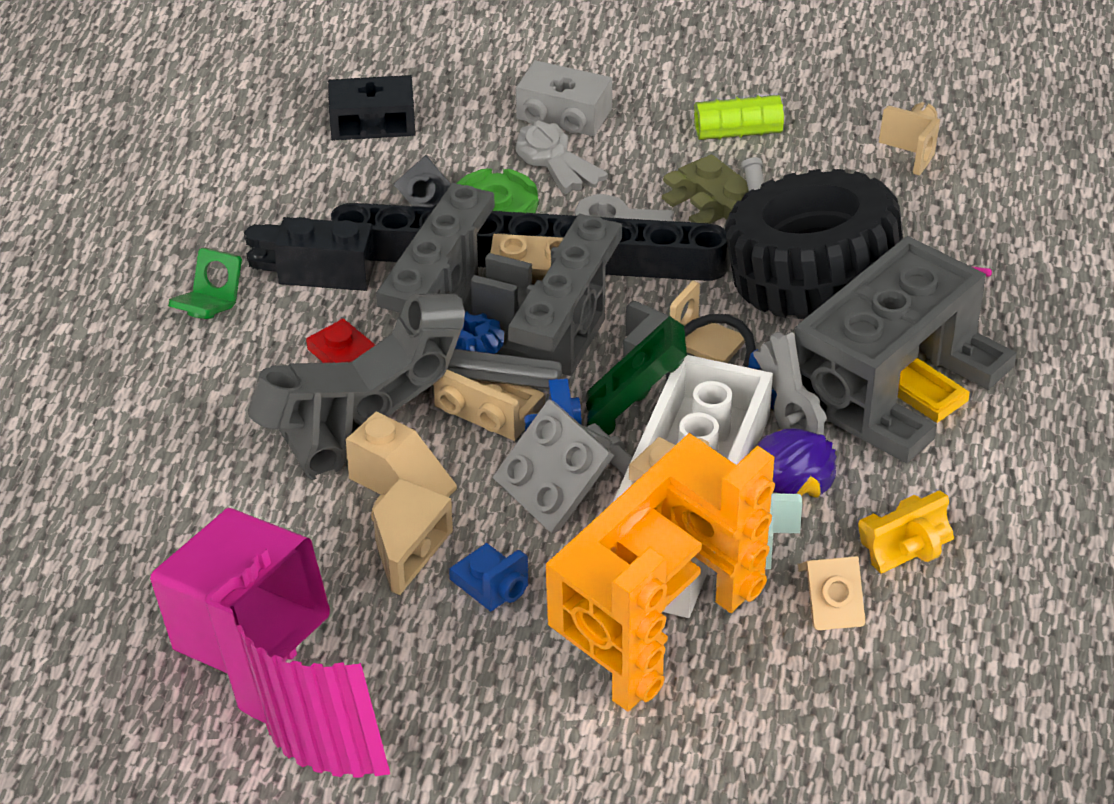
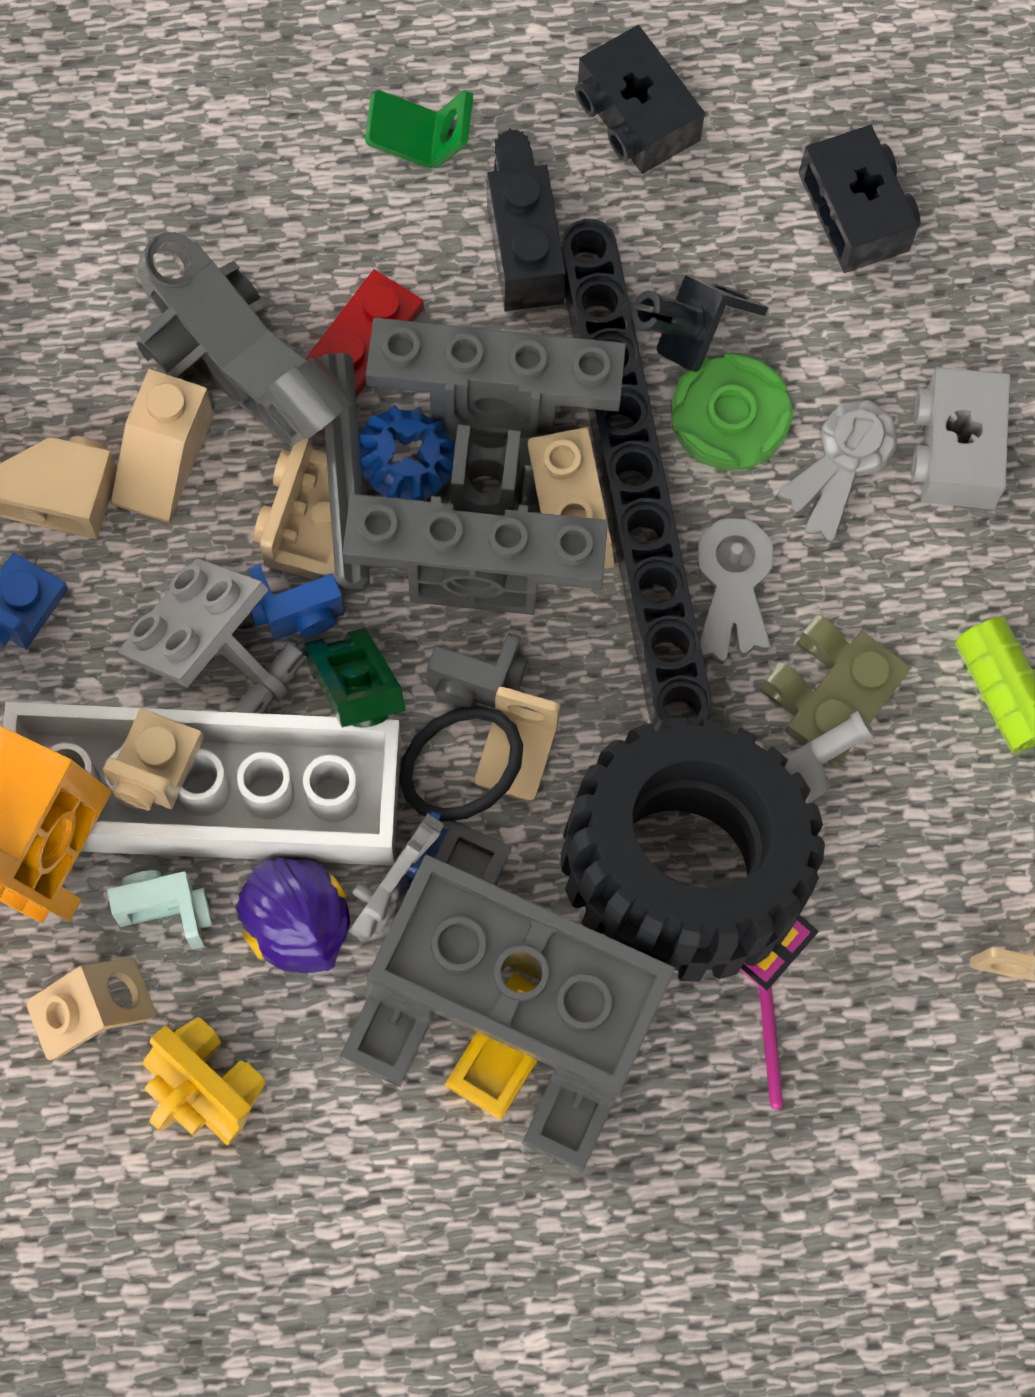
camera: 70 degrees right, 30 degrees up
(244, 185) = (638, 100): none -> black brick

